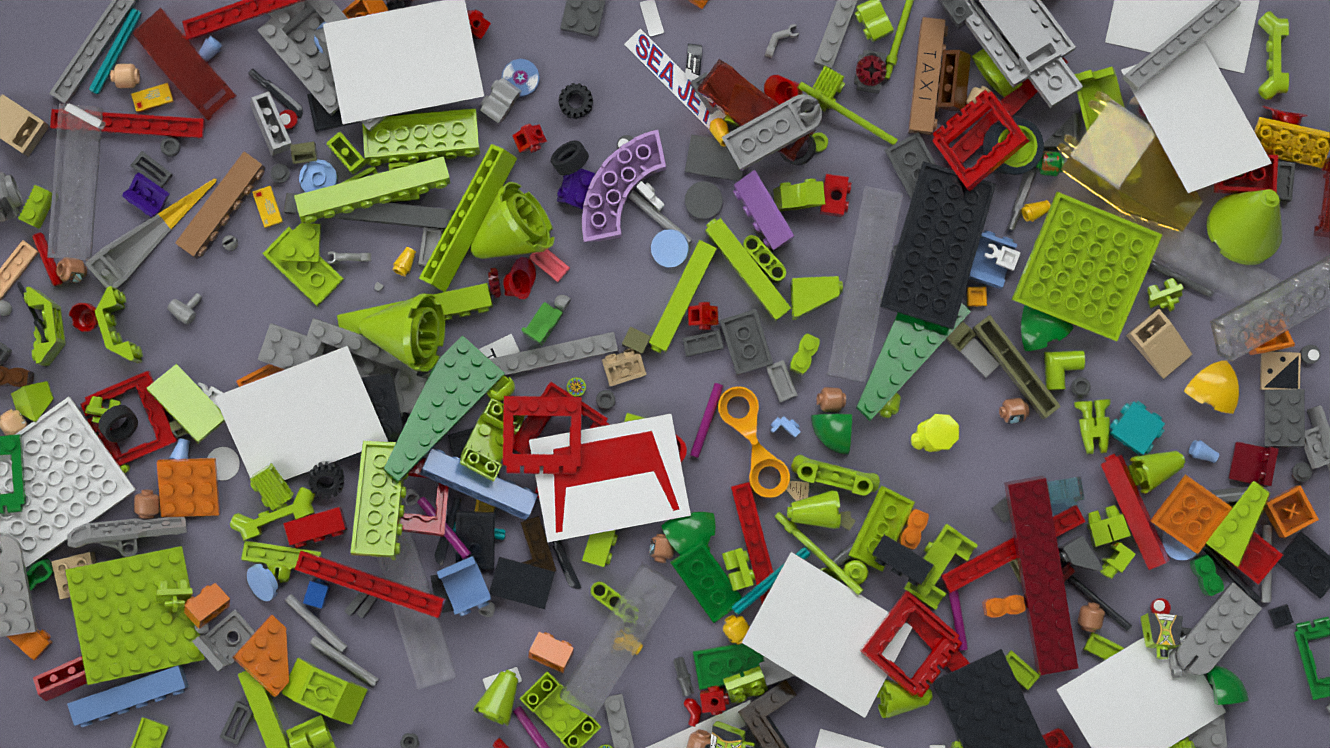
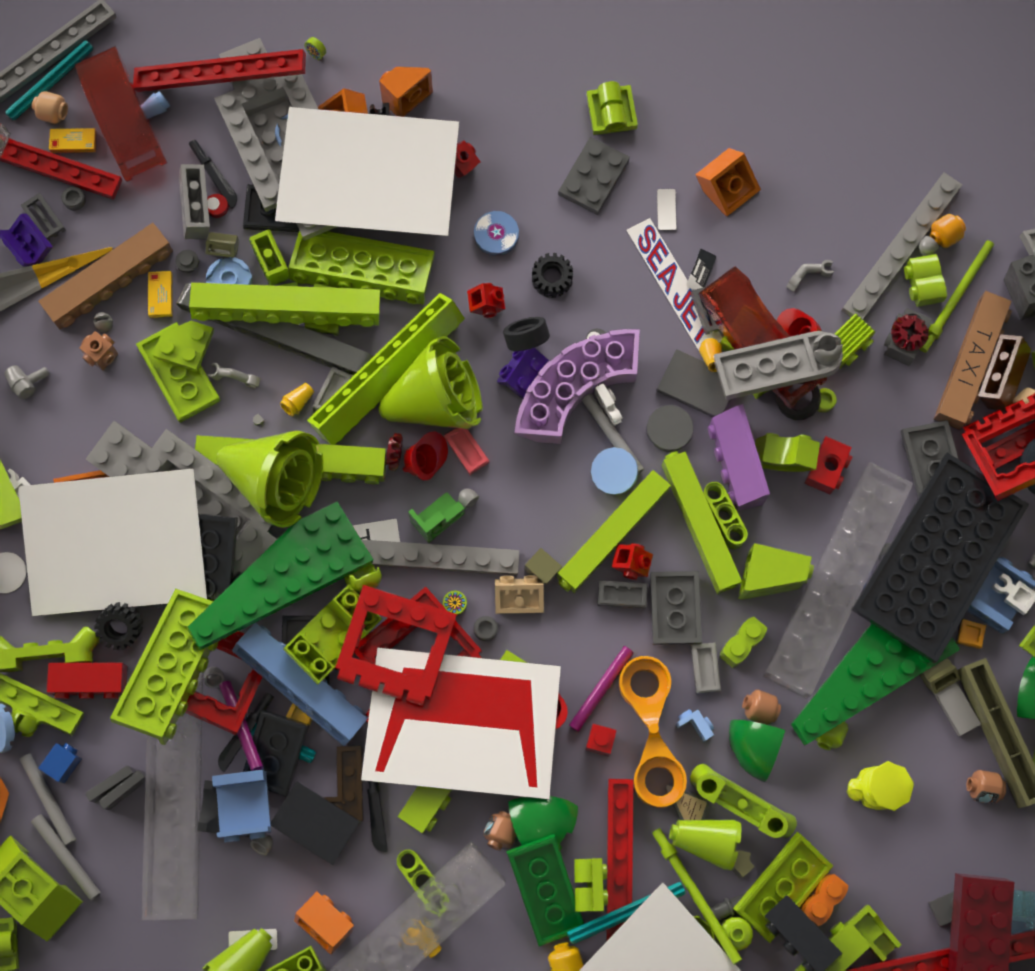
camera: 15 degrees right, 10 degrees down
(242, 268) = (98, 350): none -> nougat brick
(271, 487) = (49, 615): lime brick -> none
(370, 584) = (127, 768): red plate -> none
(500, 100) = (465, 249): light grey brick -> none
(716, 459) = (600, 740): none -> red brick
(816, 93) = (872, 378): lime bar -> none

